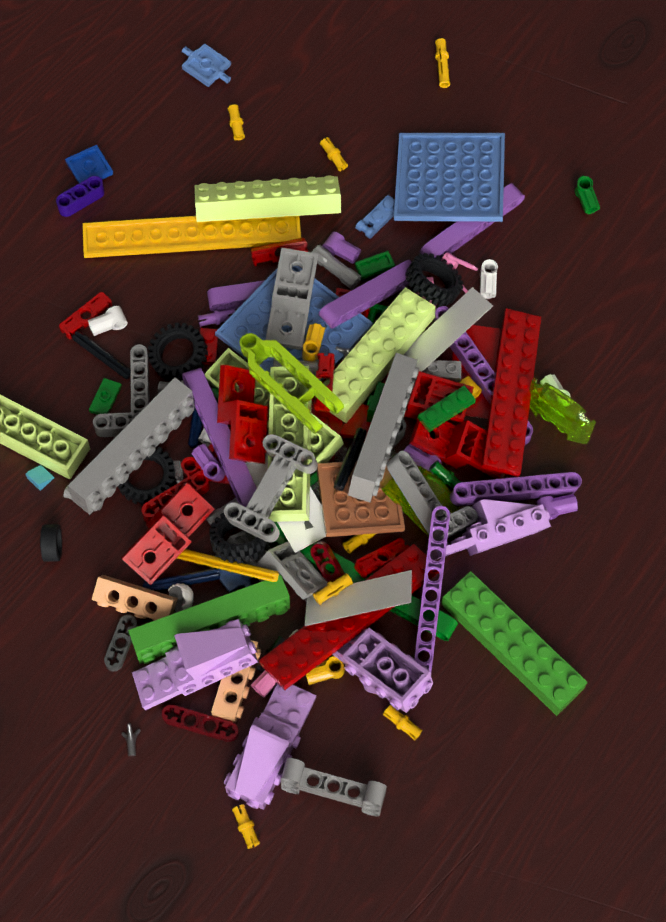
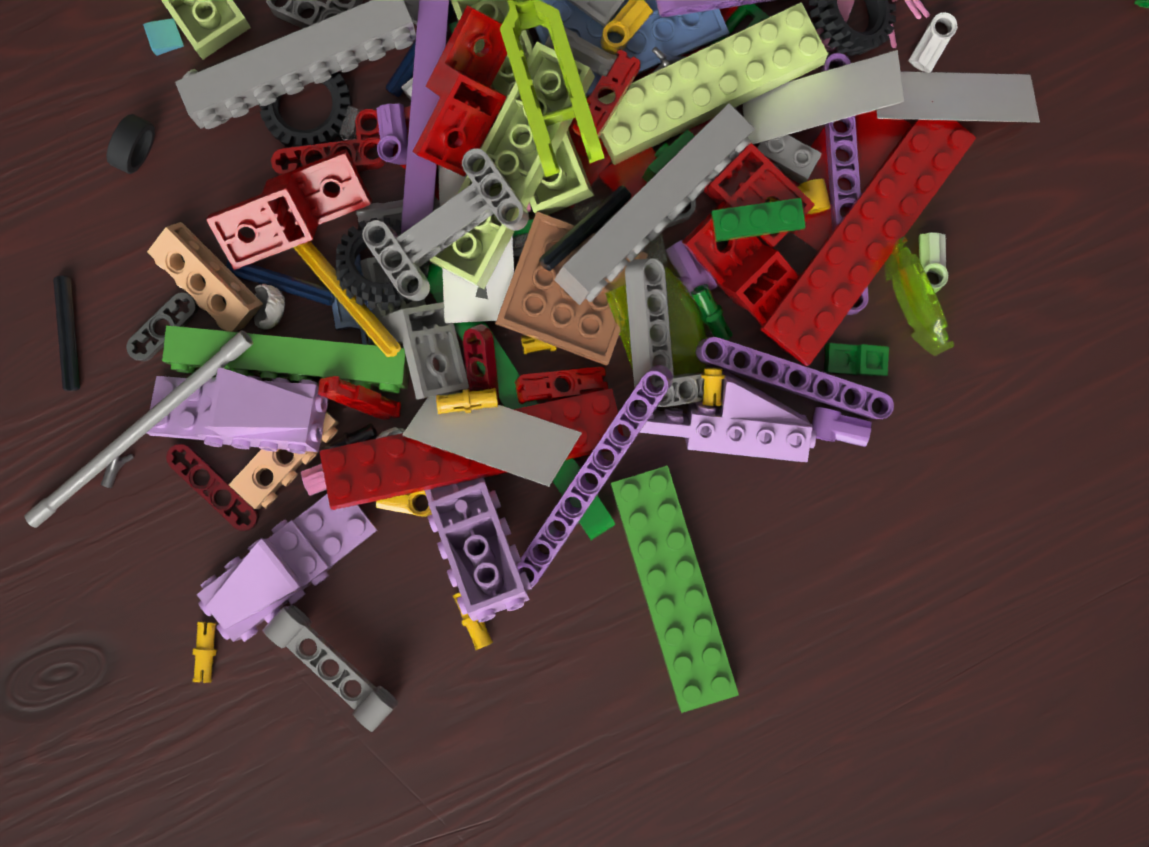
camera: 25 degrees right, 20 degrees up
(62, 675) = (66, 333): none -> black axle
(102, 782) = (227, 353): none -> light grey piece
(266, 619) = (359, 398): none -> red piece
(472, 511) = (712, 386): none -> yellow pin
(522, 299) = (964, 97): none -> white sticker
(546, 464) = (856, 359): none -> green slope

